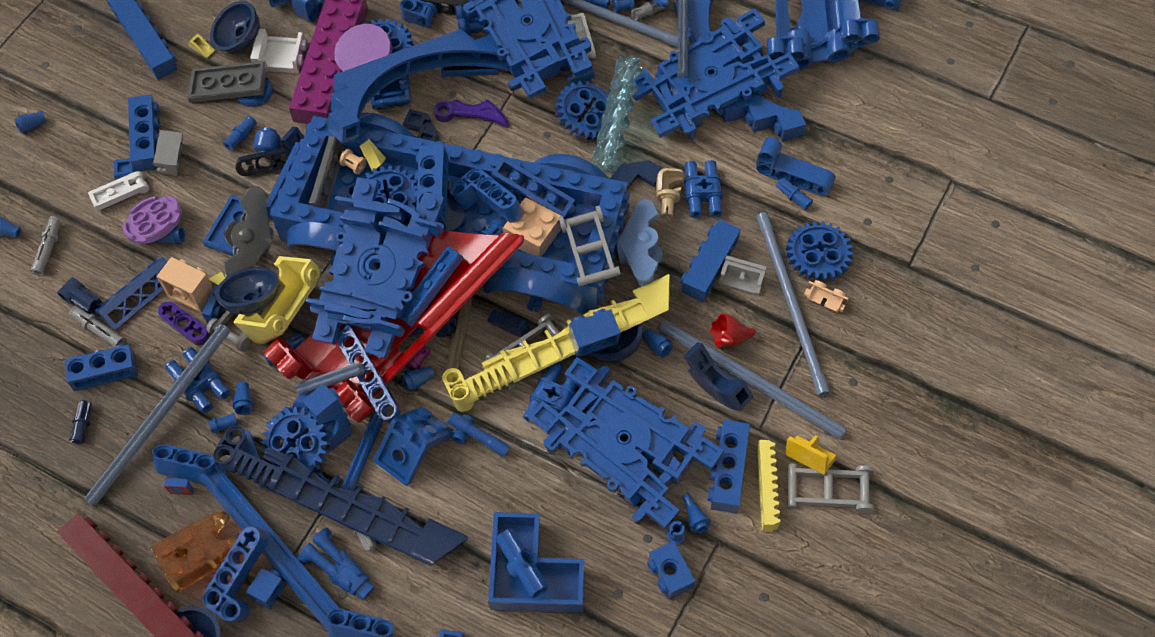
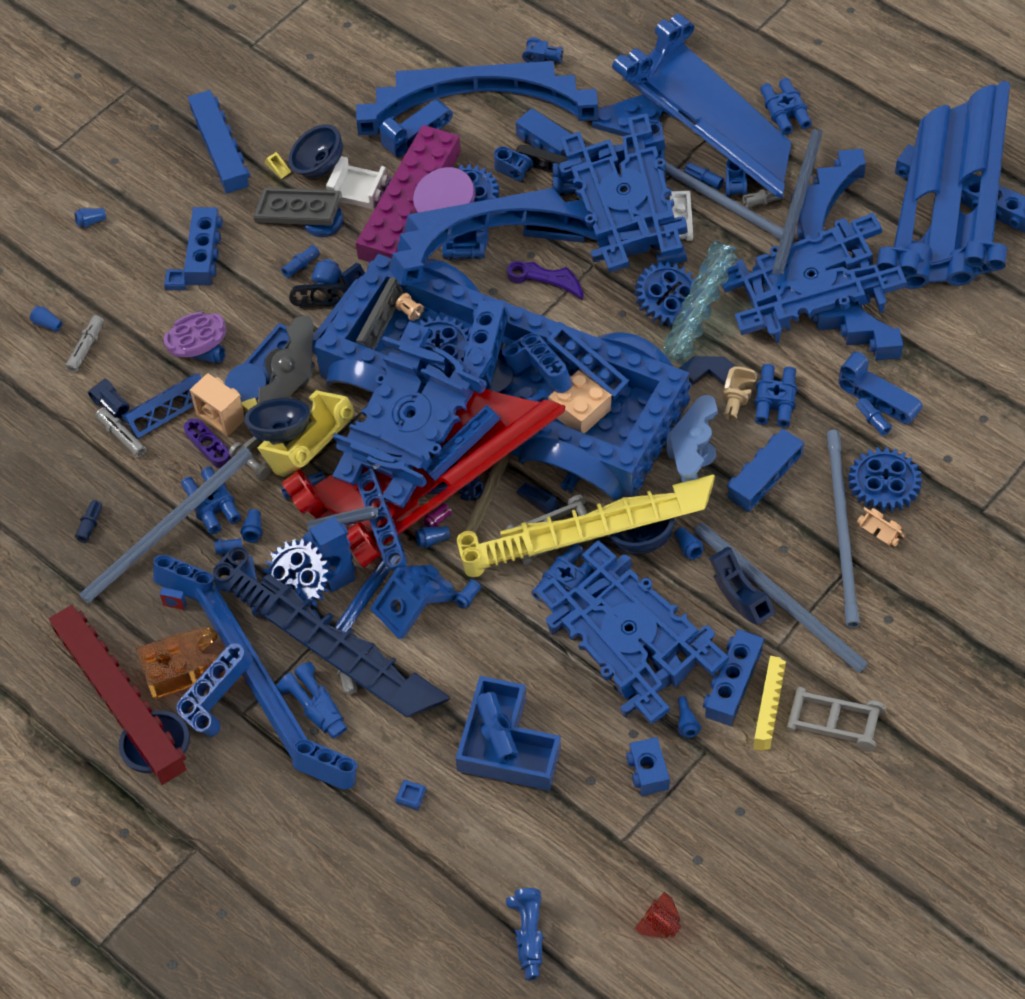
camera: 15 degrees right, 5 degrees down
(109, 372) = (127, 477): blue brick -> none
(118, 190) = (166, 300): white plate -> none
(168, 152) = (224, 269): light grey hinge -> none
(210, 256) = (246, 380): none -> blue tile
(212, 307) = (239, 432): blue plate -> none
(266, 587) = (240, 709): blue brick -> none
(372, 154) = (430, 302): light yellow piece -> none
(420, 123) = (491, 281): dark blue tile -> none
(467, 427) = (478, 597): blue piece -> none
(594, 332) = (619, 516): blue brick -> none
(598, 217) = (613, 404): light grey piece -> none
(676, 532) = (663, 731): blue pin -> none
(729, 332) = (767, 545): red hat -> none
(742, 275) = (795, 490): light grey hinge -> none
(810, 453) = (821, 679): yellow panel -> none

